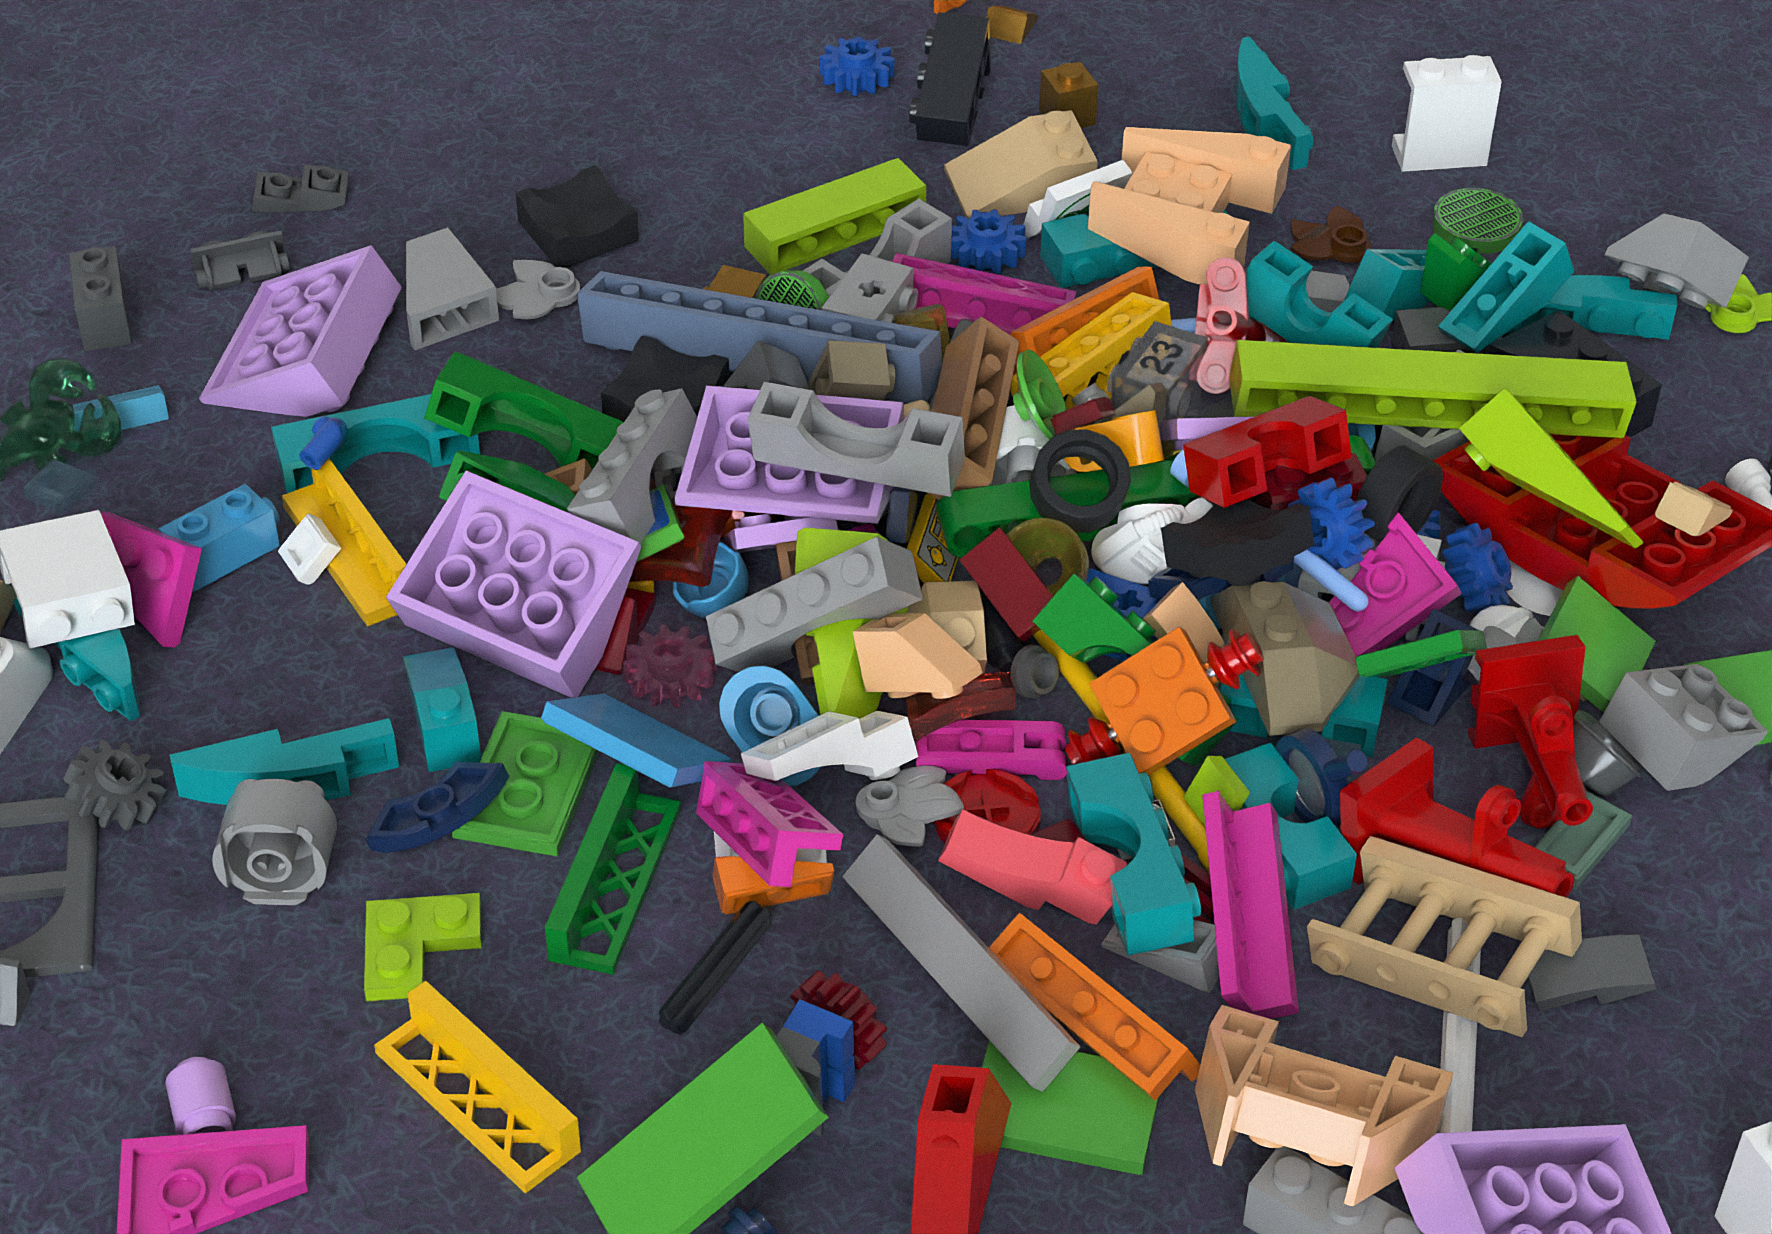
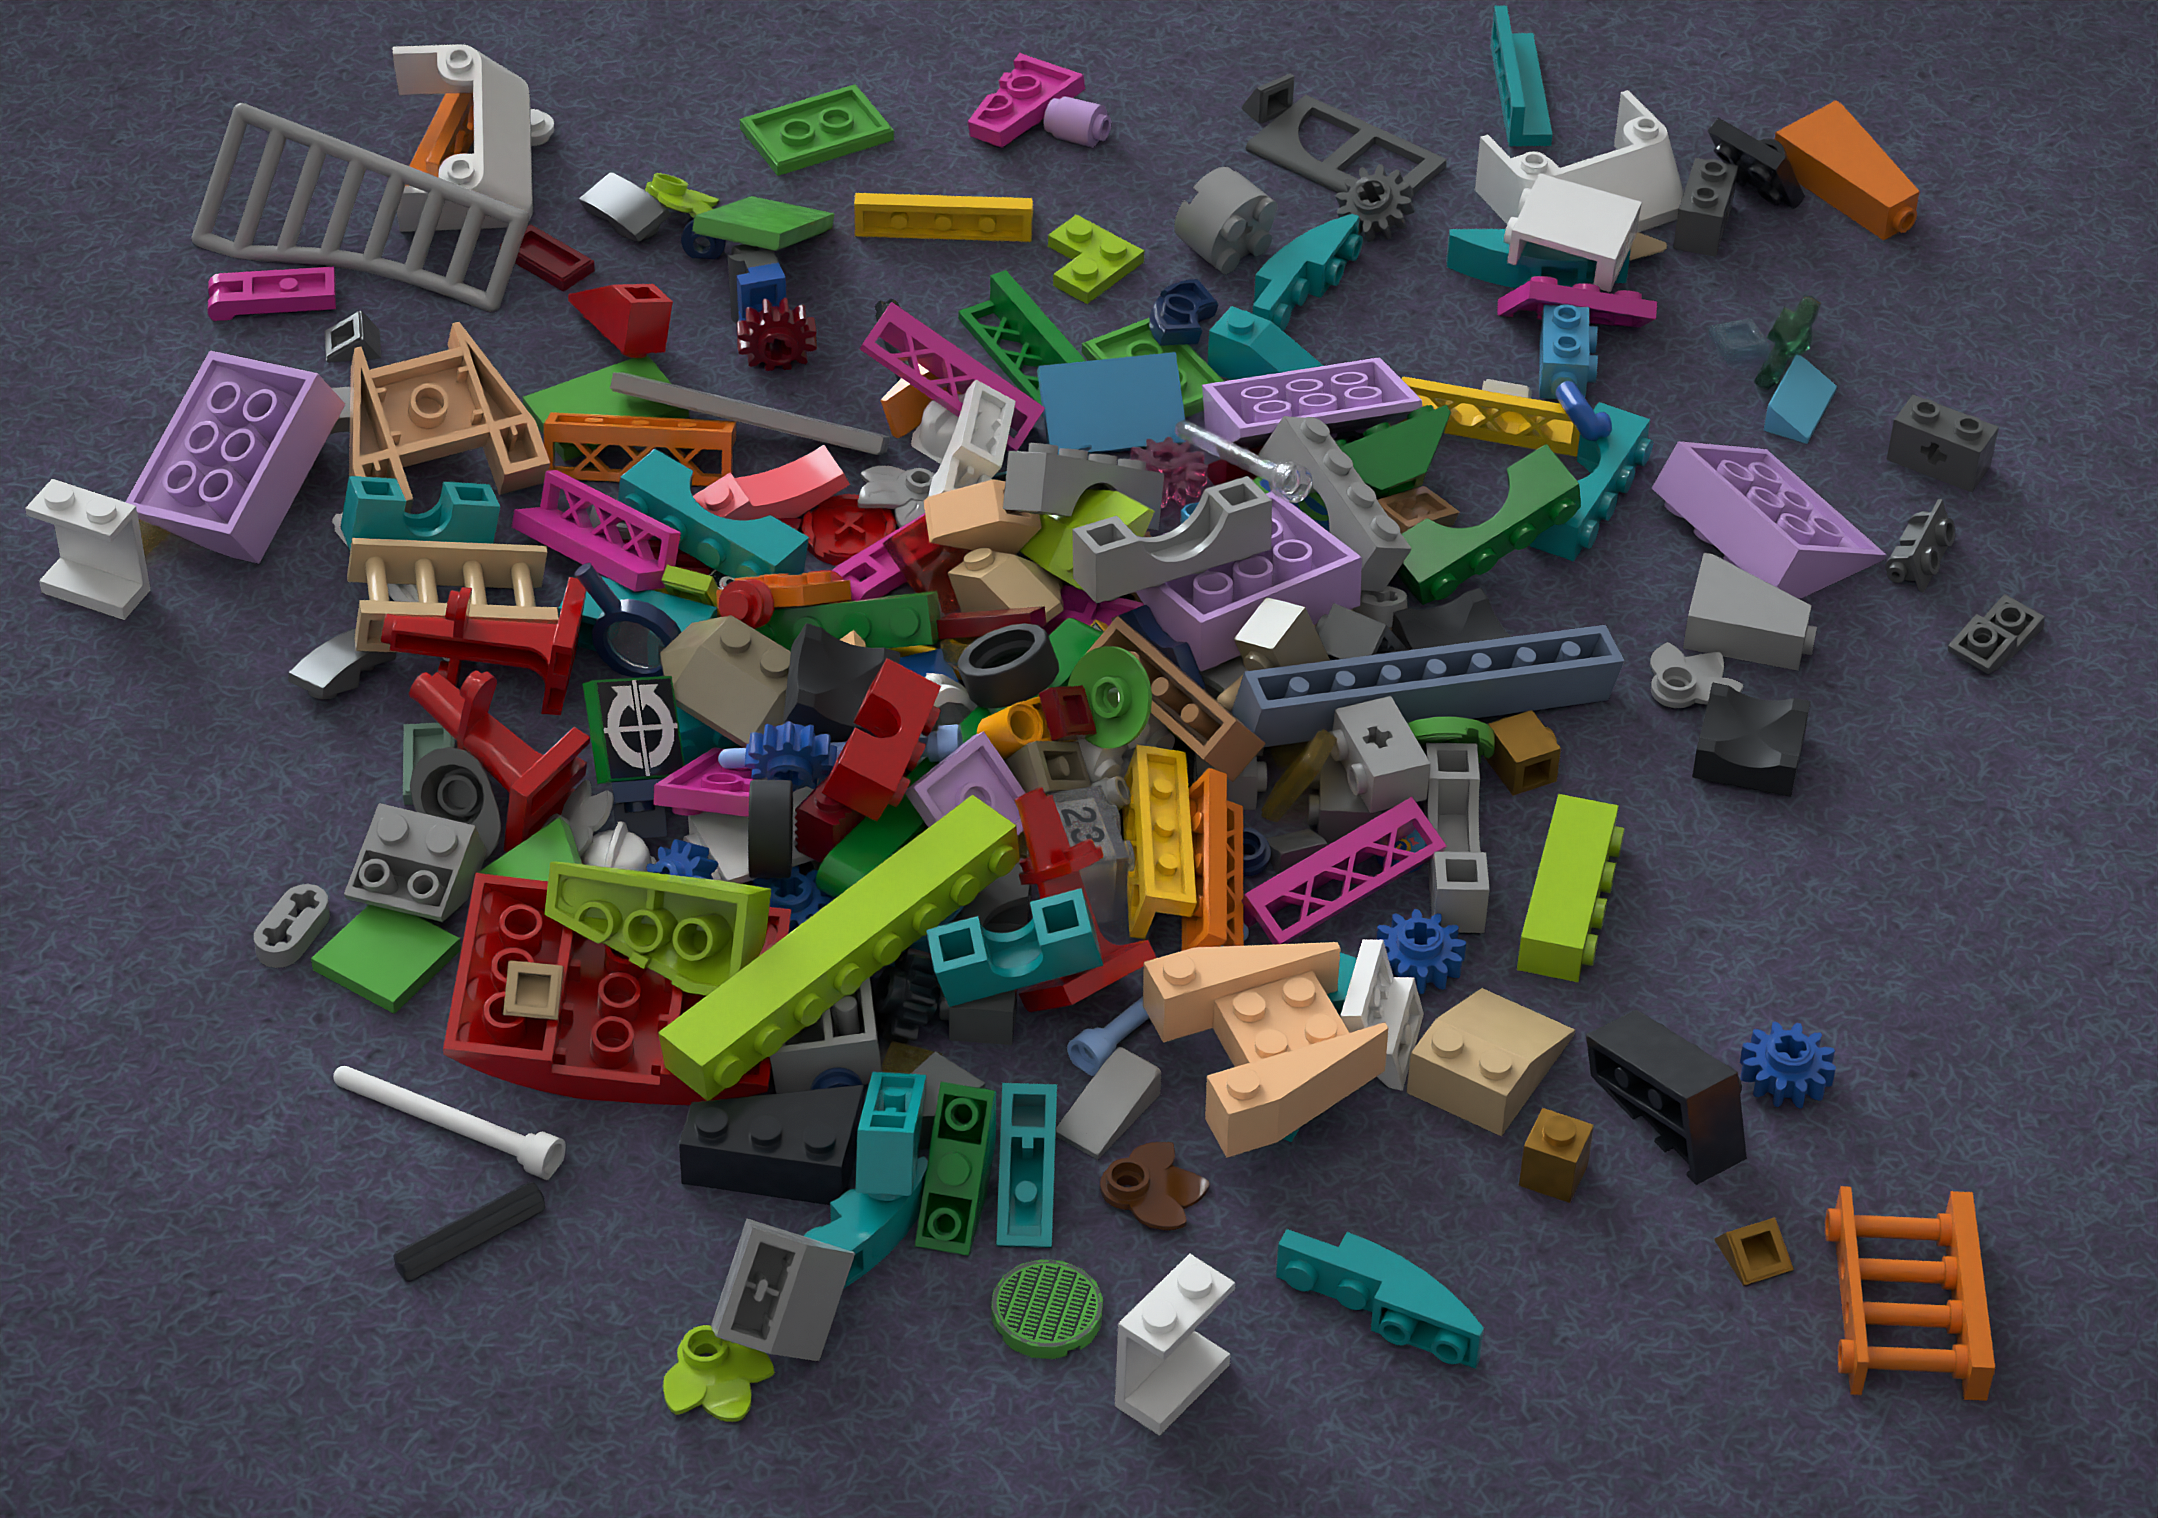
camera: 135 degrees right, 0 degrees up
(669, 474) = (1286, 479): none -> clear piece
(1364, 1026) = (377, 508): none -> teal arch

